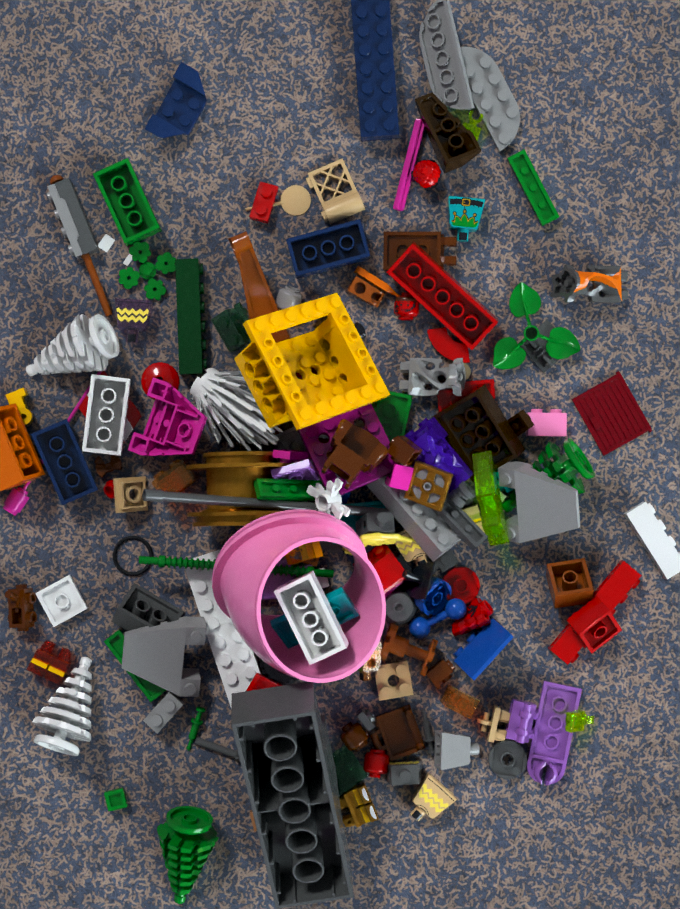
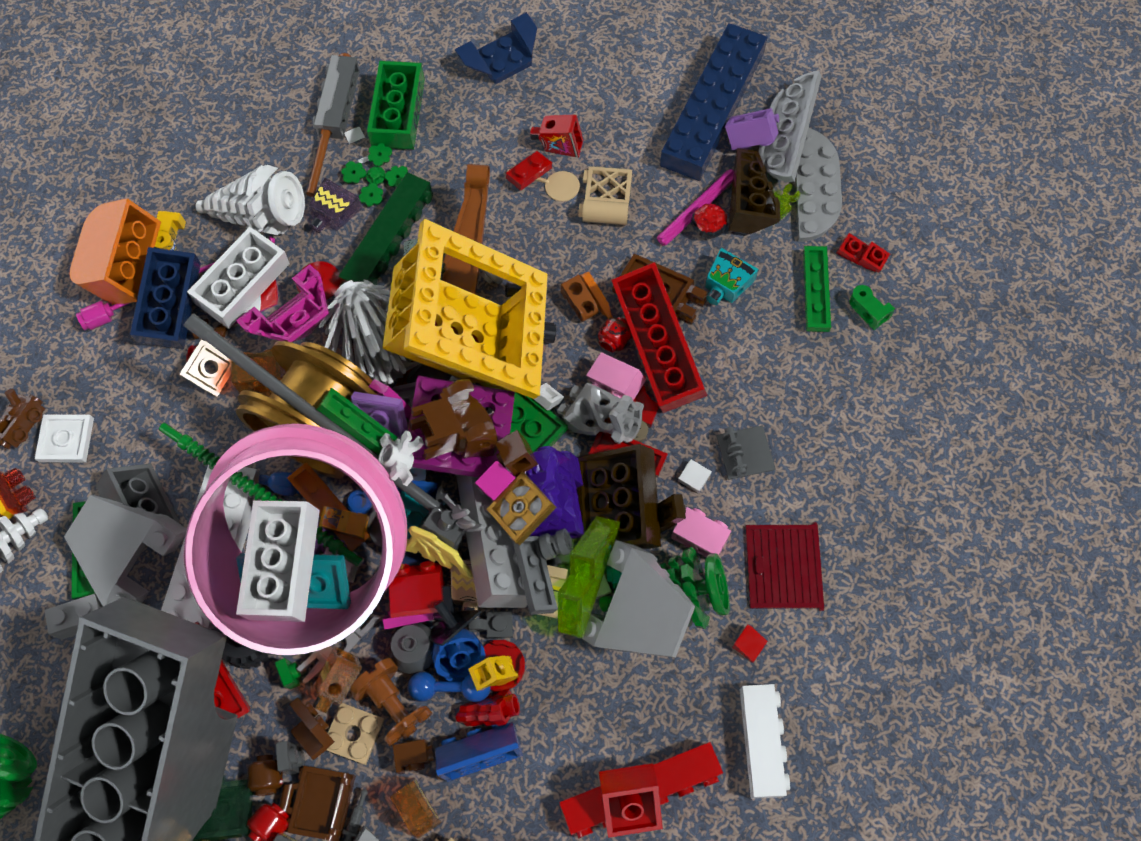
camera: 30 degrees right, 20 degrees down
(115, 555) = (158, 418): black tyre -> none
(278, 161) = (559, 135): none -> red torso
(328, 248) = (565, 238): dark blue brick -> none
(367, 696) = (311, 730): none -> reddish brown bracket
(389, 380) = (548, 397): none -> white tile
(393, 513) = (464, 520): none -> light grey piece
(419, 76) = (752, 129): none -> medium lavender brick
(427, 342) = (615, 376): none -> bright pink brick
(464, 596) = (493, 672): none -> yellow leg
(519, 383) = (694, 476): none -> white tile
(552, 138) = (867, 256): none -> red slope
(560, 343) = (744, 395): green plant -> none
(569, 583) = (628, 731): dark orange brick -> none
(574, 282) = (850, 411): dark grey hips -> none
(577, 183) = (869, 307): none -> green leg
(615, 480) = (750, 643): none -> red slope

